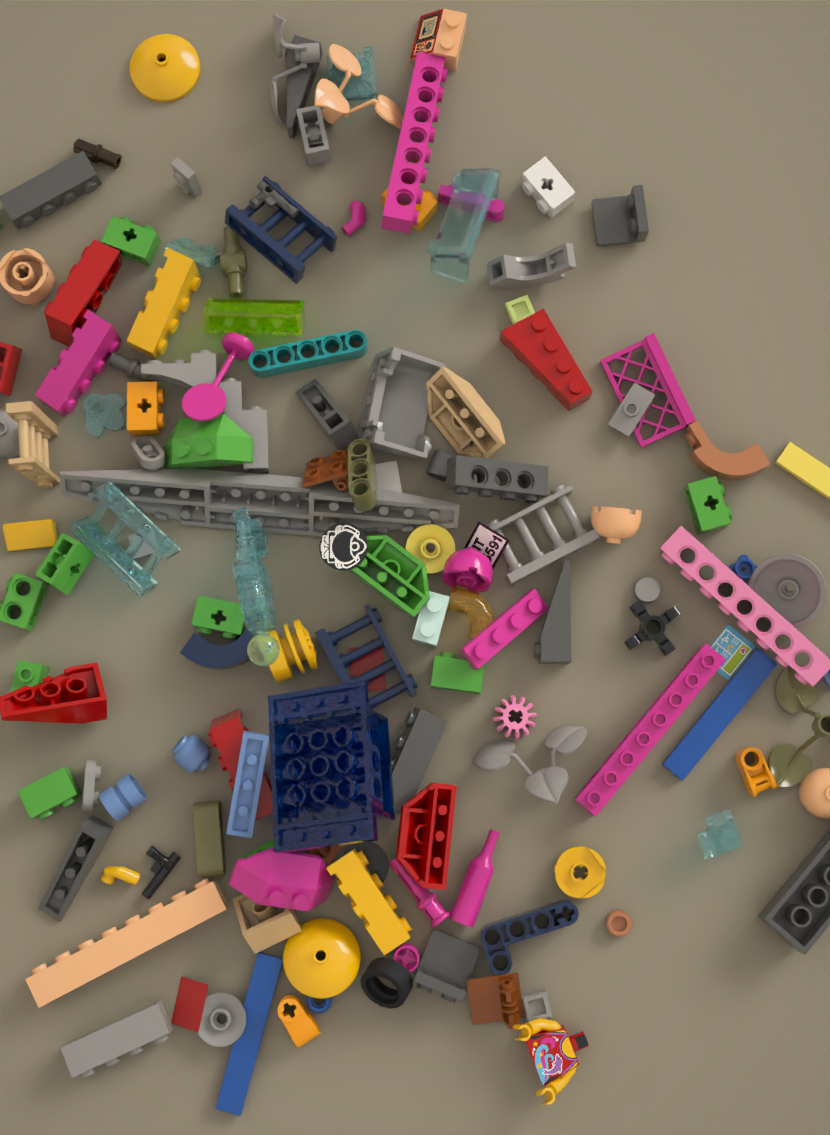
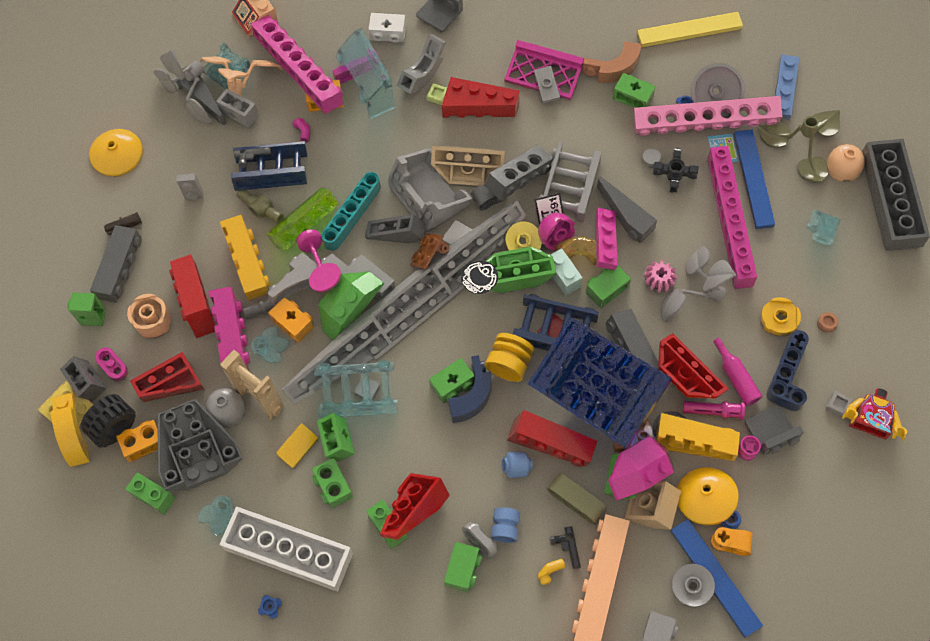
camera: 45 degrees left, 15 degrees down
(75, 866) = (522, 593): dark grey slope -> none
(139, 249) = (199, 244): bright green brick -> none
(148, 452) = (319, 337): light grey plate -> none
(189, 1004) = (667, 596): red sticker -> none
(201, 254) = (245, 214): clear light blue plate -> none
(247, 784) = (567, 439): medium blue plate -> none
(255, 588) = (458, 338): clear light blue arm -> none
(362, 475) = (453, 232): olive beam -> none
(380, 993) = (764, 477): black tyre -> none
(495, 999) = (817, 419): dark orange hinge -> none
(615, 523) = (600, 138): light nougat cylinder -> none
(755, 773) = (802, 186): light orange piece -> none

